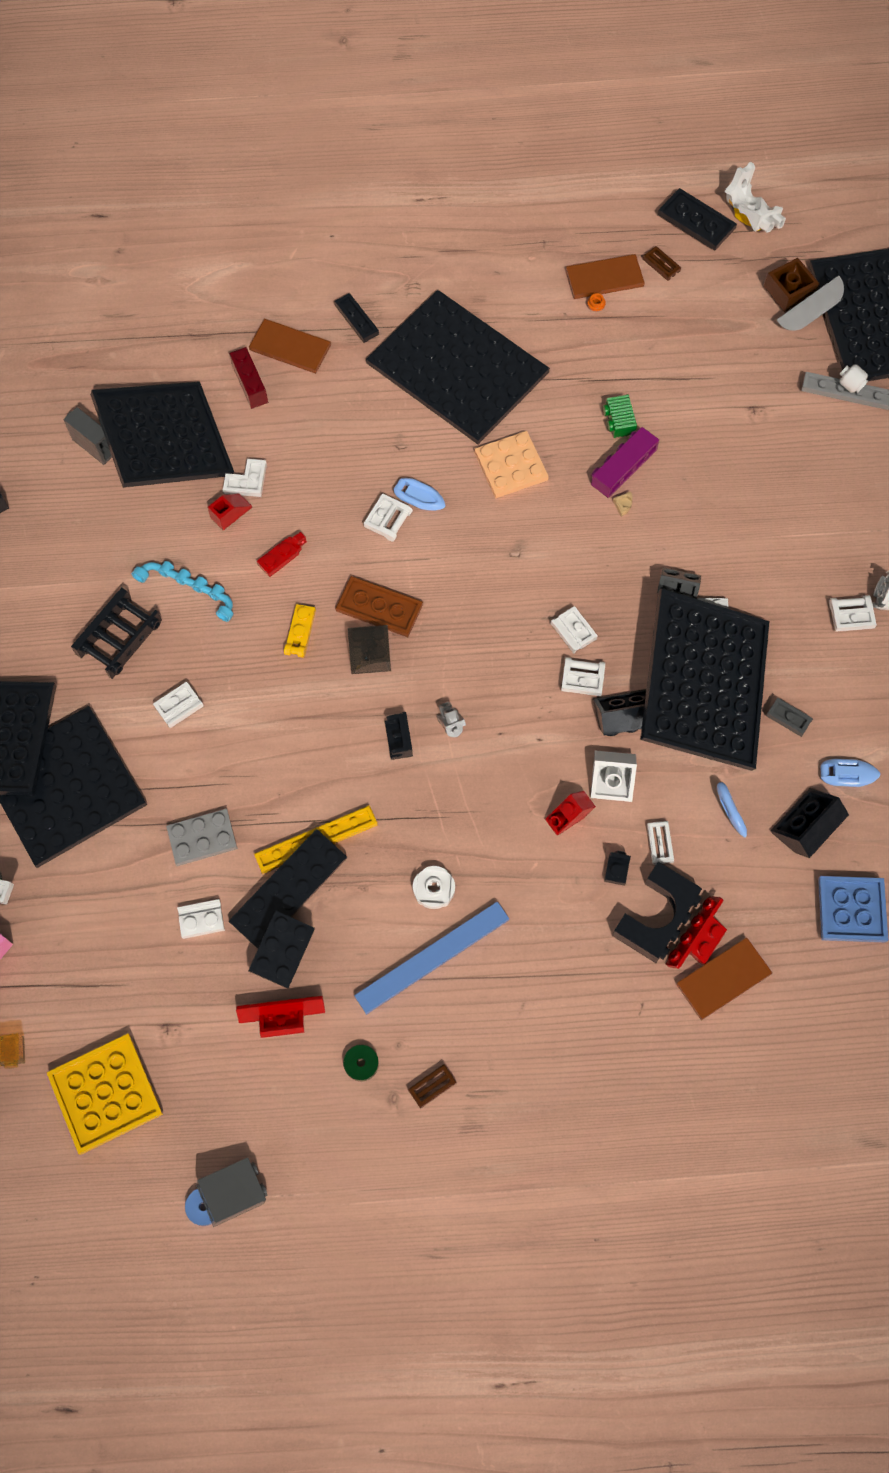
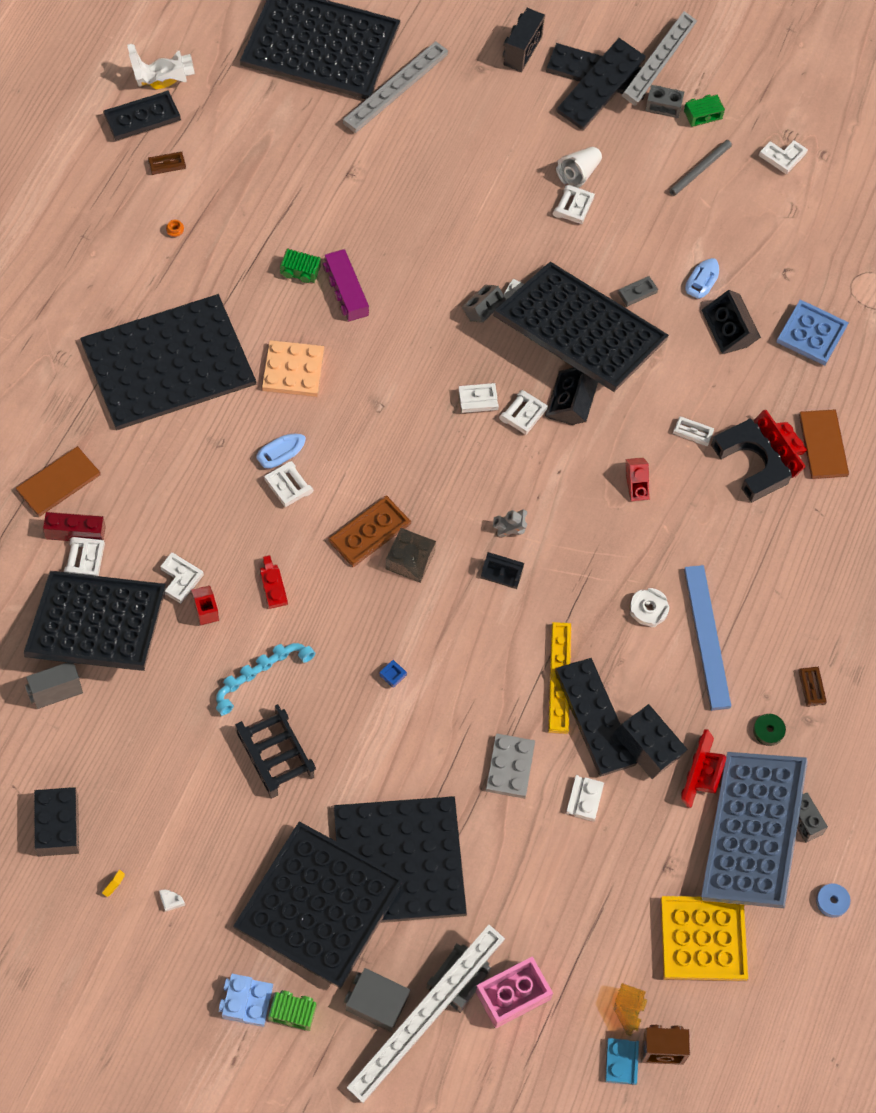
camera: 70 degrees left, 5 degrees down
(178, 705) = (375, 730): white plate -> none
(228, 404) = (90, 558): none -> white plate
(231, 1191) = (834, 870): dark grey brick -> none
(232, 1091) = (755, 830): none -> sand blue plate
(242, 693) = (393, 673): none -> blue plate
(277, 1139) = (810, 820): none -> dark grey brick
(300, 630) = (357, 602): yellow plate -> none
(356, 317) = (66, 414): black plate -> none
(605, 276) = (152, 209): dark orange tile -> none
(613, 776) = (622, 432): white slope -> none
(617, 868) = (700, 470): black bracket -> none
(623, 503) = (381, 307): tan tile -> none
(730, 809) = (693, 368): light blue piece -> none
(790, 284) = (256, 85): reddish brown slope -> none
(813, 306) = (286, 81): light grey brick -> none
(853, 378) = (374, 90): white head -> none

